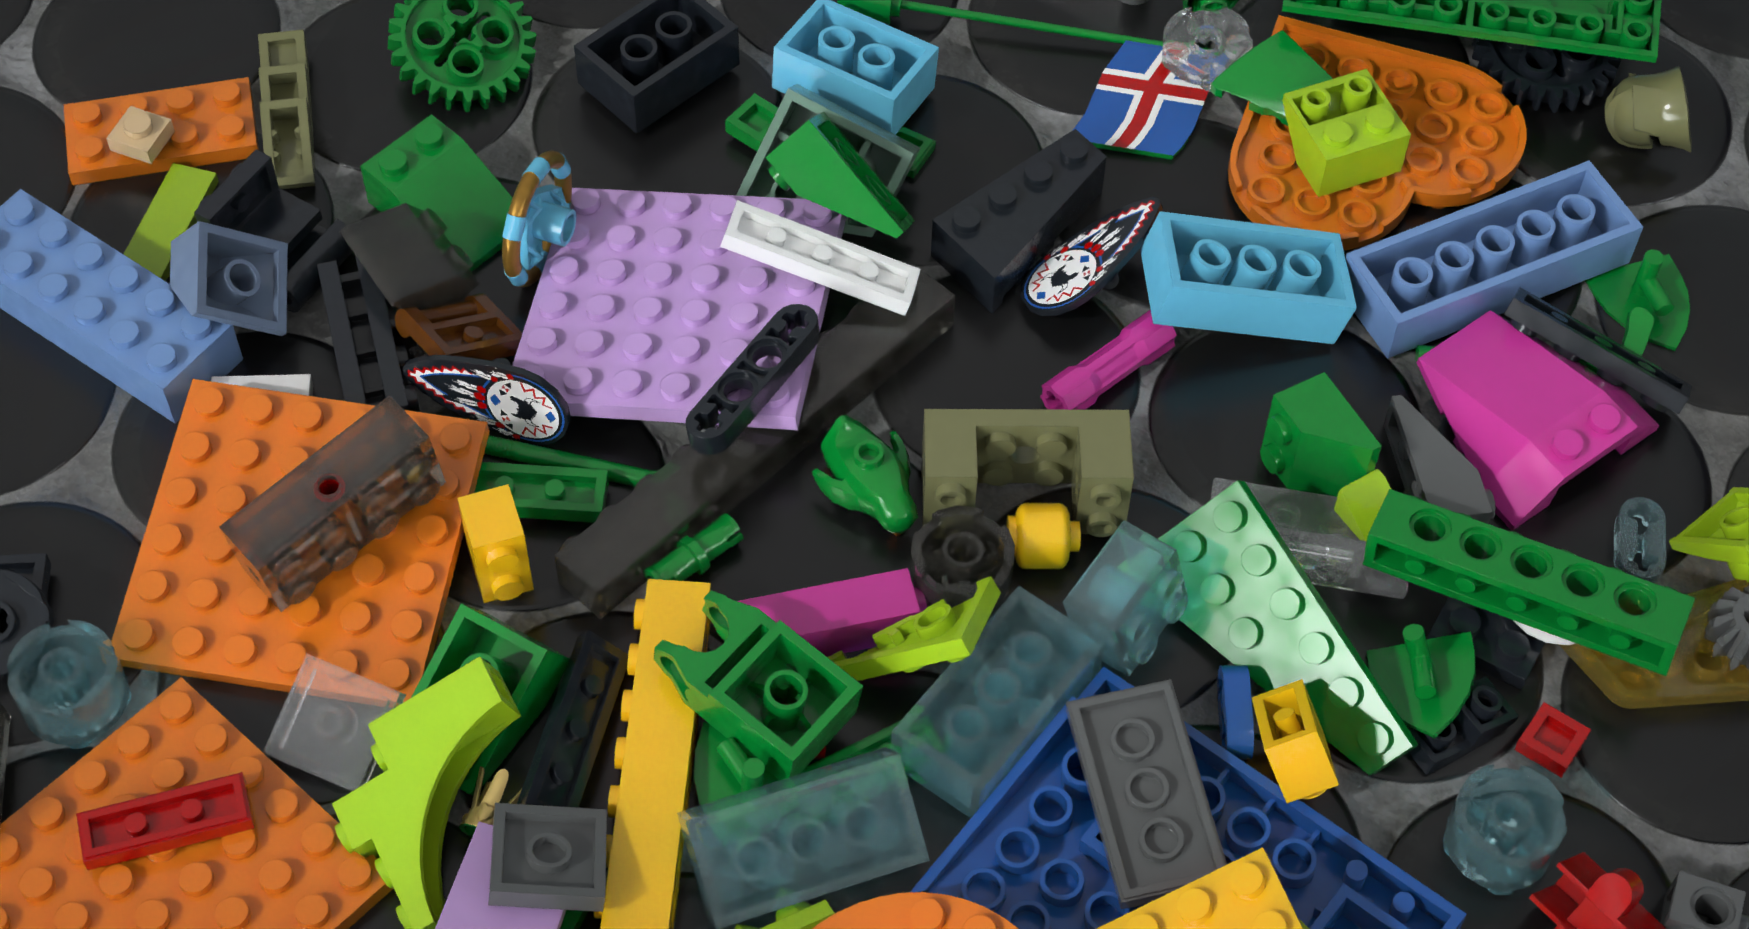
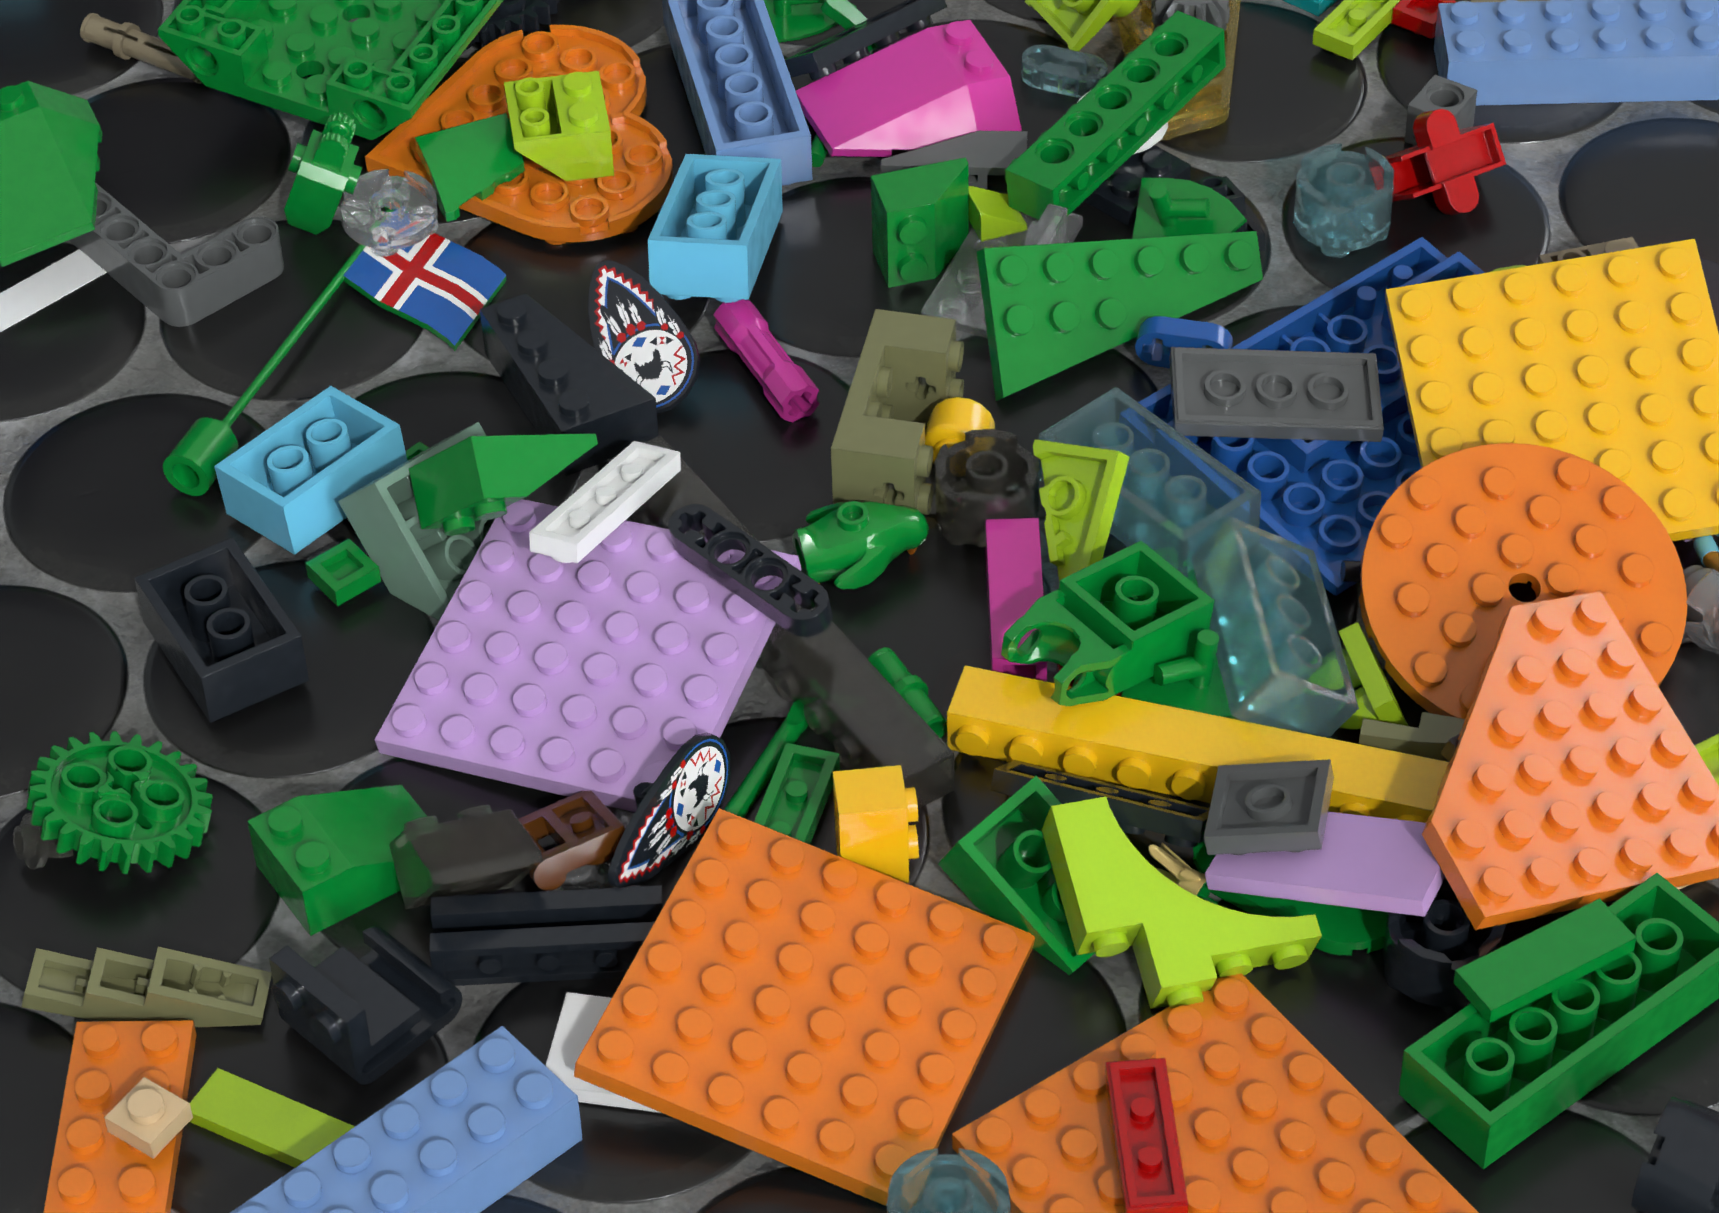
camera: 75 degrees left, 10 degrees down
(231, 277) = (435, 1023): sand blue slope -> none
(327, 723) = (1049, 996): clear plate -> none
(335, 504) = (824, 912): clear smoke brick -> none
(537, 219) = (442, 741): medium azure piece -> none
(1129, 596) = (1066, 357): clear light blue brick -> none
(1294, 742) = (1244, 290): yellow brick -> none
(1552, 739) = (1254, 162): red plate -> none

